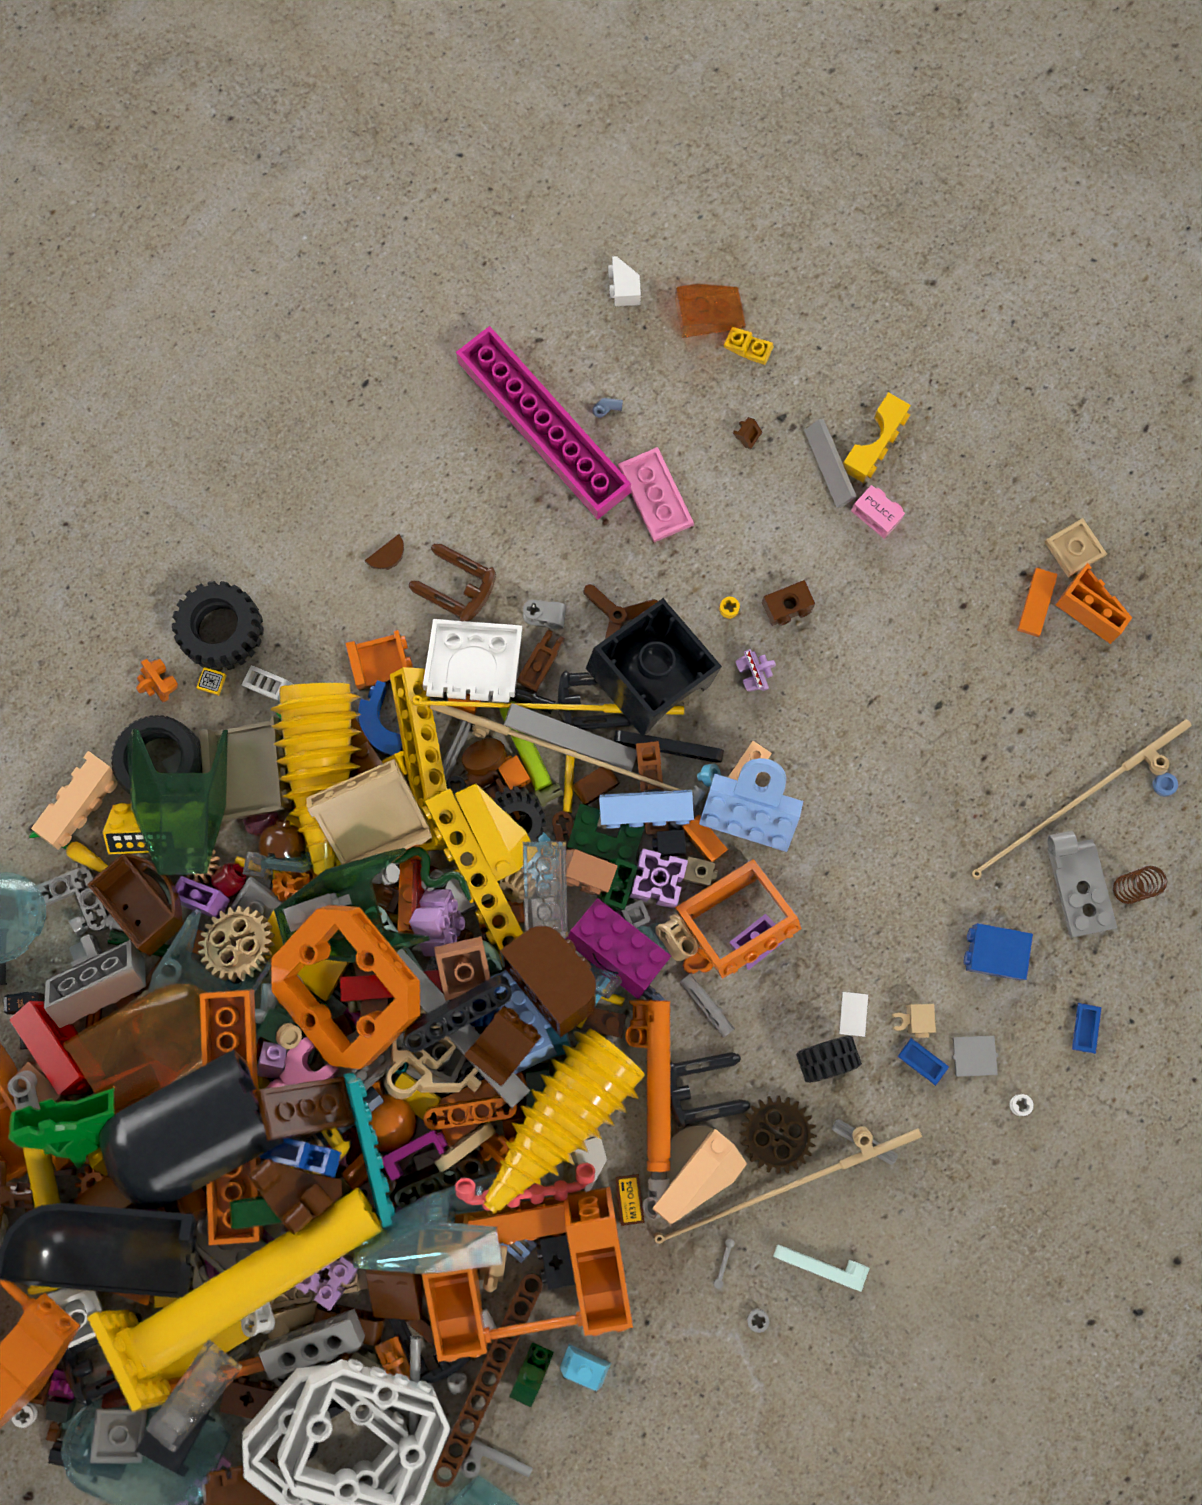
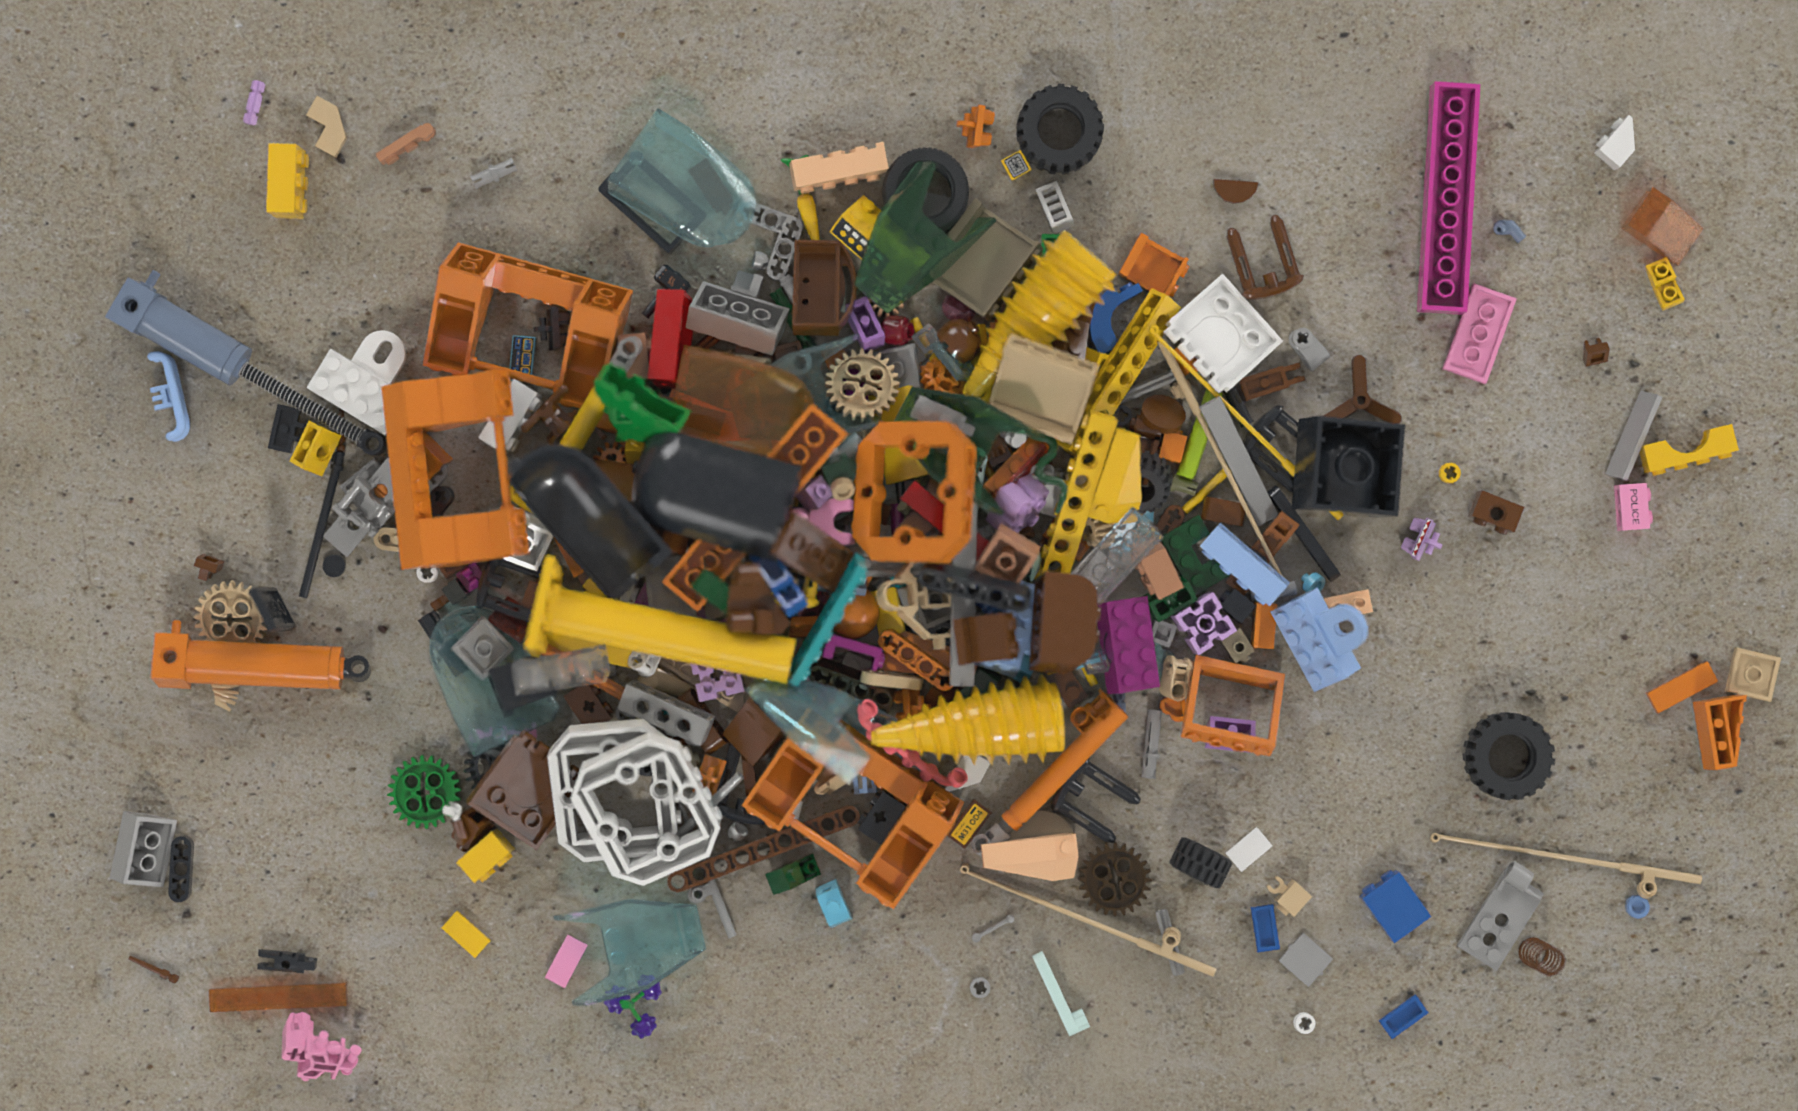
camera: 45 degrees right, 10 degrees up
(989, 743) = (1538, 761): none -> black tyre

